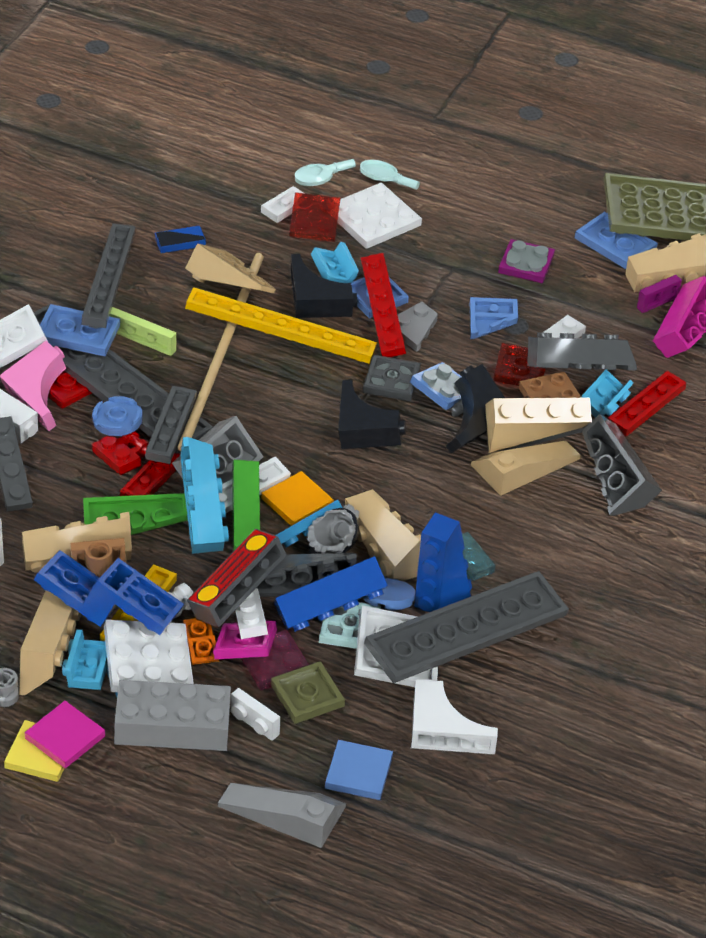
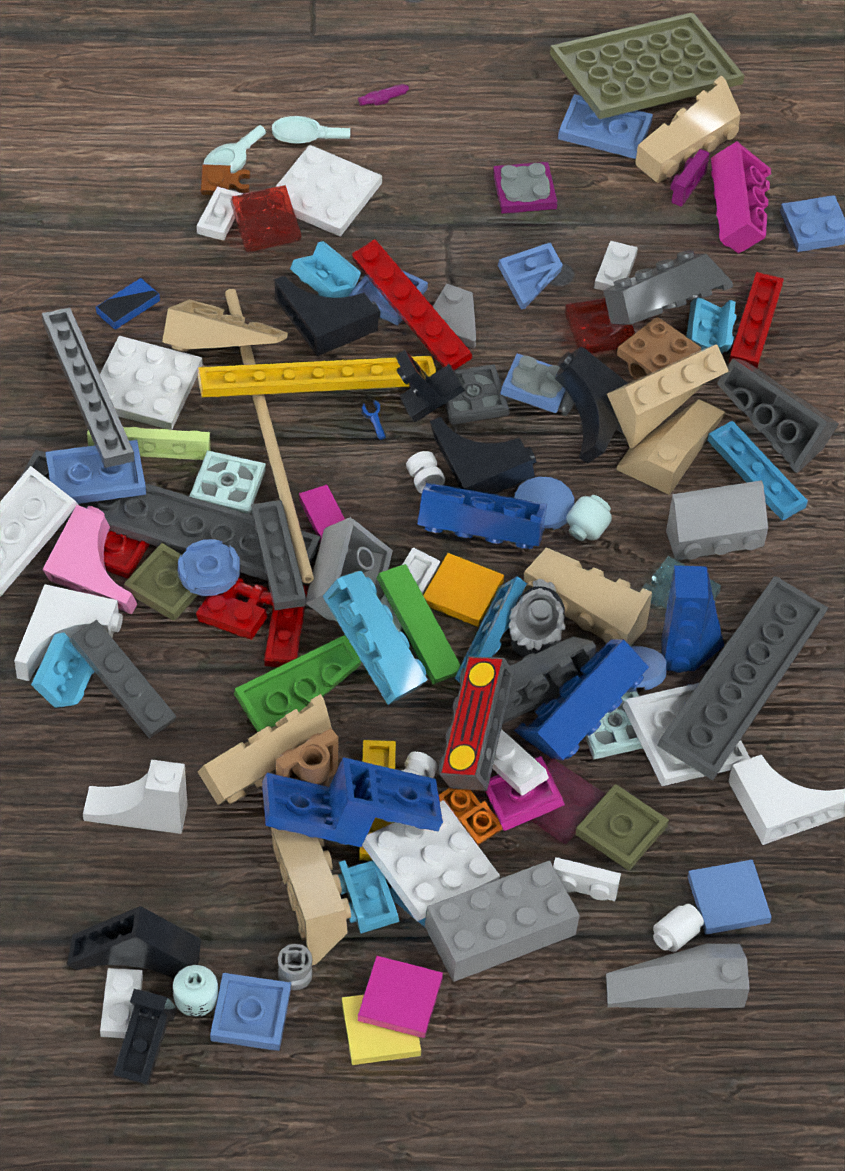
camera: 25 degrees left, 10 degrees up
(76, 417) = (159, 585): none -> olive plate
(157, 291) = (149, 381): none -> white plate
(173, 369) = (228, 481): none -> light aqua piece
(229, 407) = (320, 508): none -> dark pink tile
(302, 182) = (221, 176): none -> dark orange plate
(303, 772) = (677, 927): none -> white brick
(308, 368) = (374, 419): none -> blue hand
(320, 414) = (424, 470): none -> white wheel
(341, 454) = (482, 515): none -> blue wedge
(353, 361) = (426, 391): none -> black bracket
(397, 466) = (551, 492): none -> medium blue tile
(422, 485) = (589, 518): none -> light aqua head
(459, 170) = (382, 96): none -> magenta piece
(518, 518) = (717, 520): none -> light grey slope
(577, 501) = (755, 466): none -> dark azure plate

